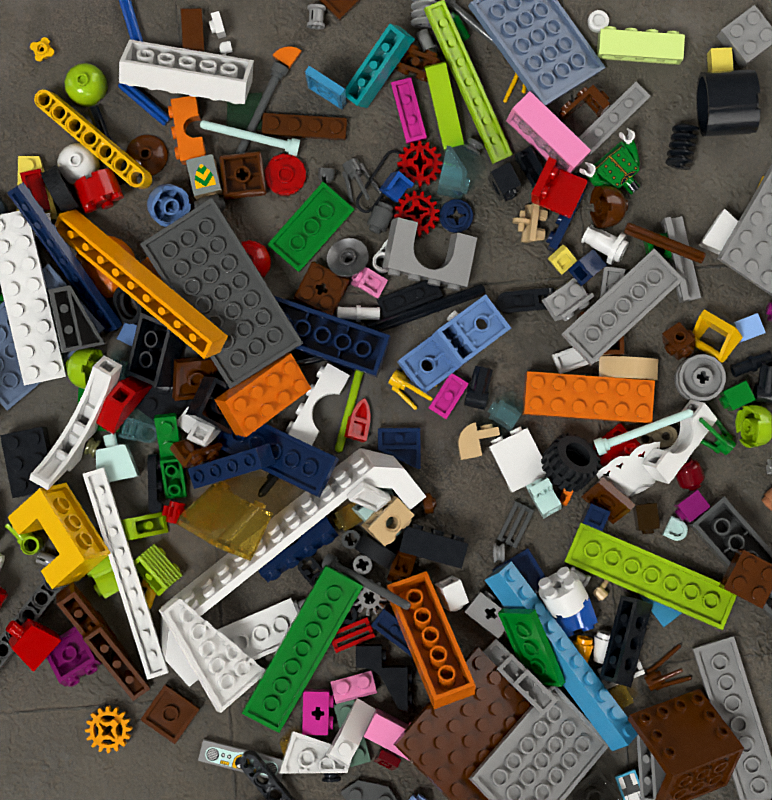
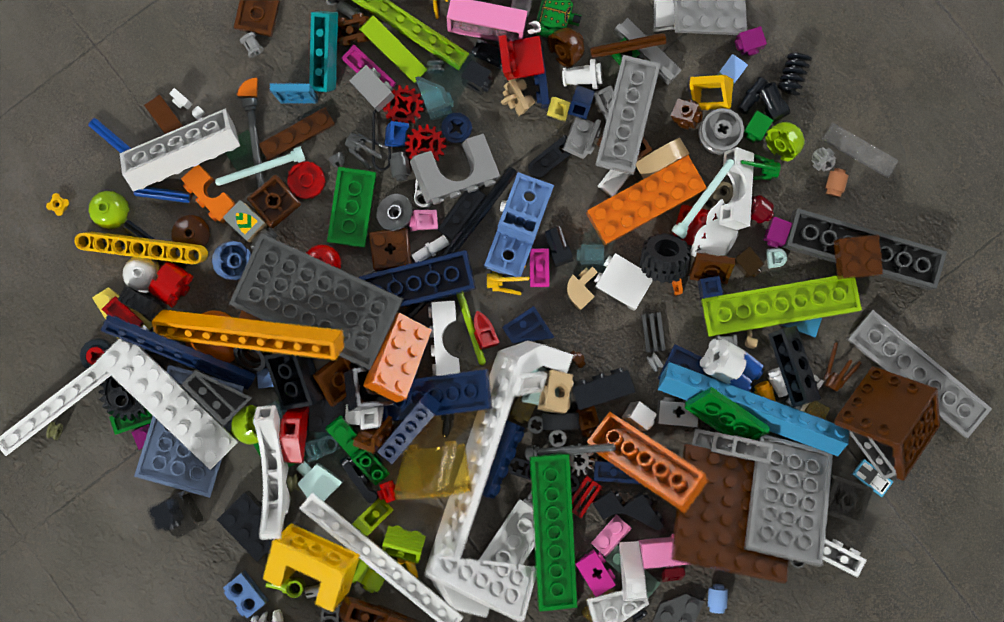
camera: 30 degrees left, 0 degrees up
(401, 129) = (372, 88): none -> light grey brick
(544, 497) = (661, 297): light aqua brick -> none

